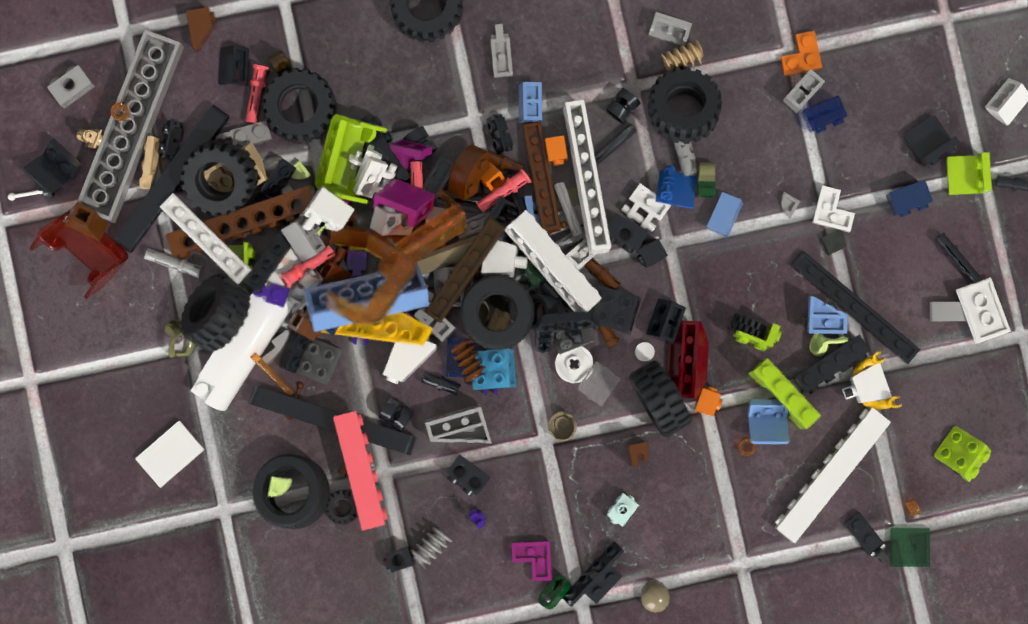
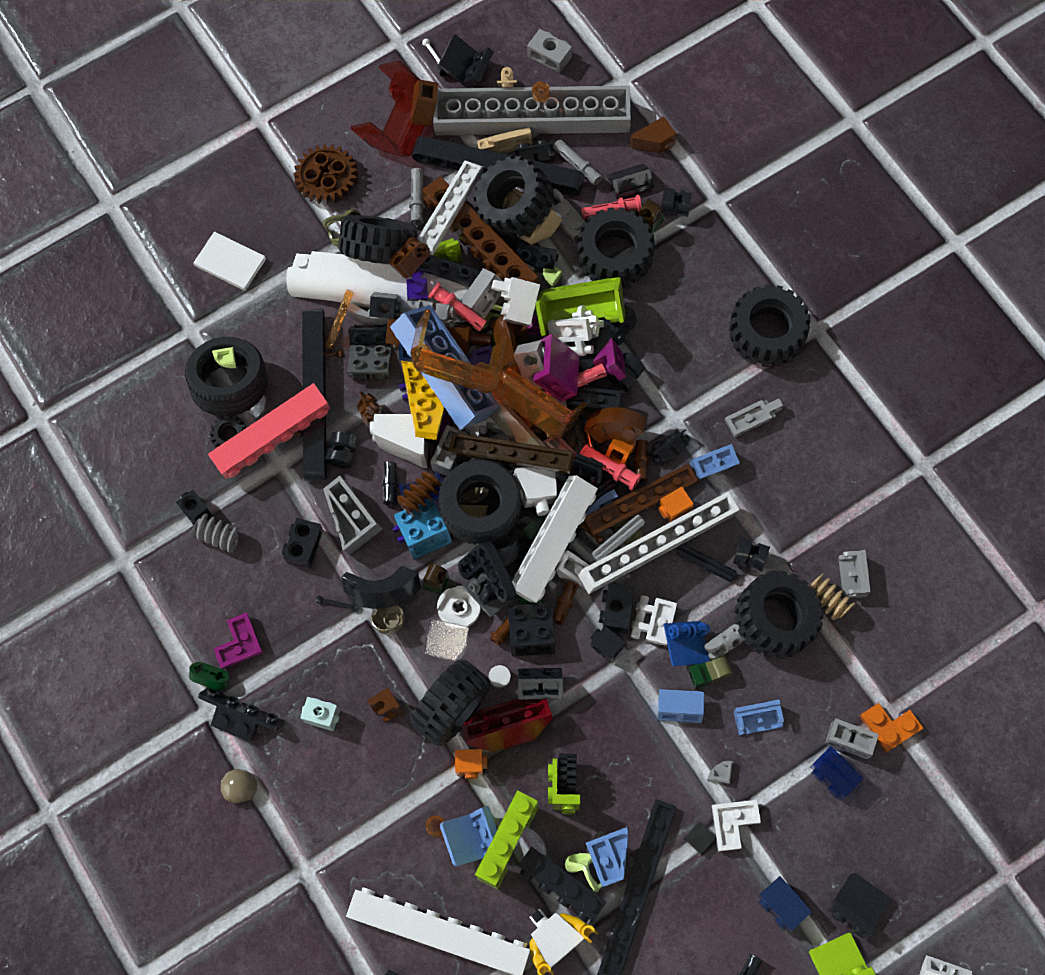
camera: 75 degrees right, 15 degrees down
(104, 349) = (325, 174): none -> reddish brown gear
(202, 103) = (577, 162): none -> light grey pin
(251, 291) = (408, 257): none -> reddish brown piece
(269, 39) = (670, 196): none -> black wheel
(273, 329) = (377, 310): none -> black brick
(368, 377) = (368, 407): none -> reddish brown hinge
(478, 518) = (260, 568): dark purple plate -> none
(539, 451) = (354, 608): none -> black hinge
(541, 422) = (382, 593): none -> black arch
(543, 375) = (435, 579): none -> dark brown leg
(757, 156) = (759, 717): none -> medium blue hinge

